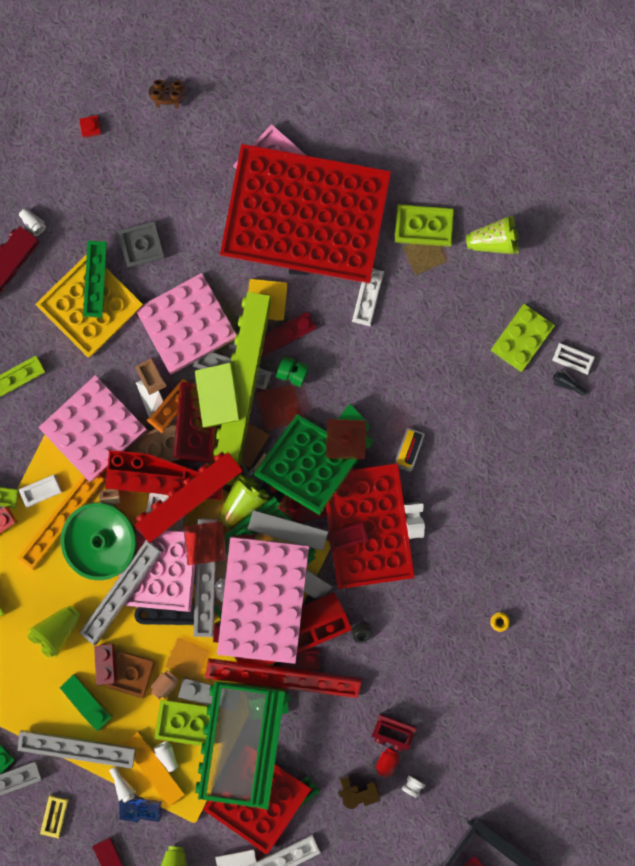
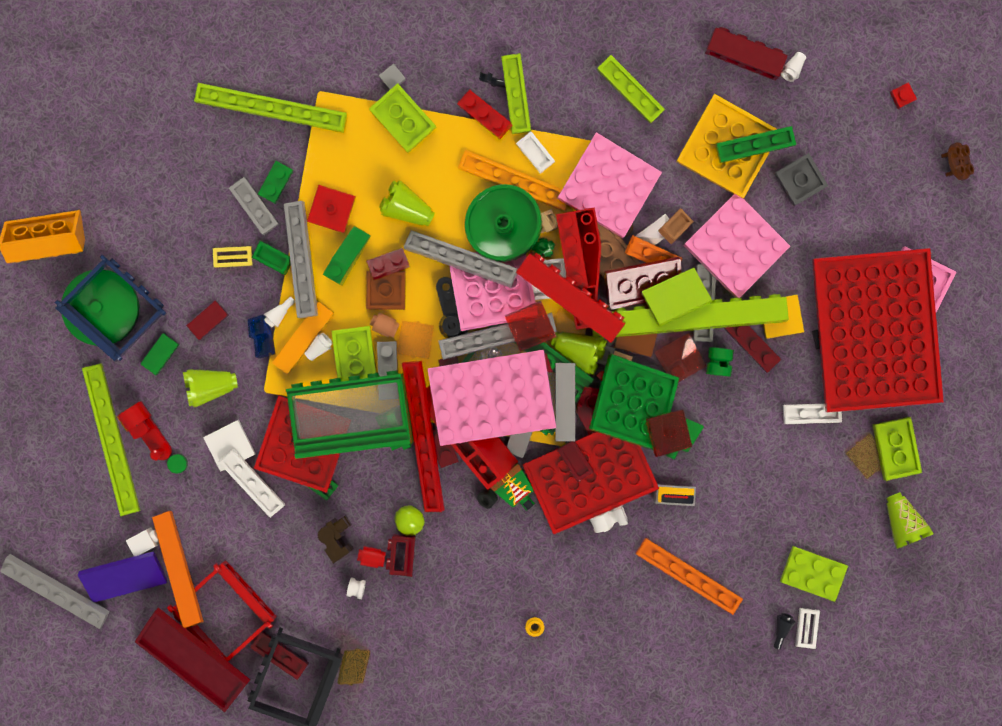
camera: 70 degrees right, 5 degrees up
(36, 705) = (331, 209): none -> red plate
(66, 777) = (272, 257): none -> green tile
(134, 508) = (544, 247): none -> green plant
(176, 620) = (449, 319): none -> black cone
(358, 603) = (515, 488): none -> torso
(362, 715) = (409, 520): none -> lime hair
(489, 811) = (353, 667): none -> clear yellow piece
(492, 458) = (689, 576): none -> orange tile

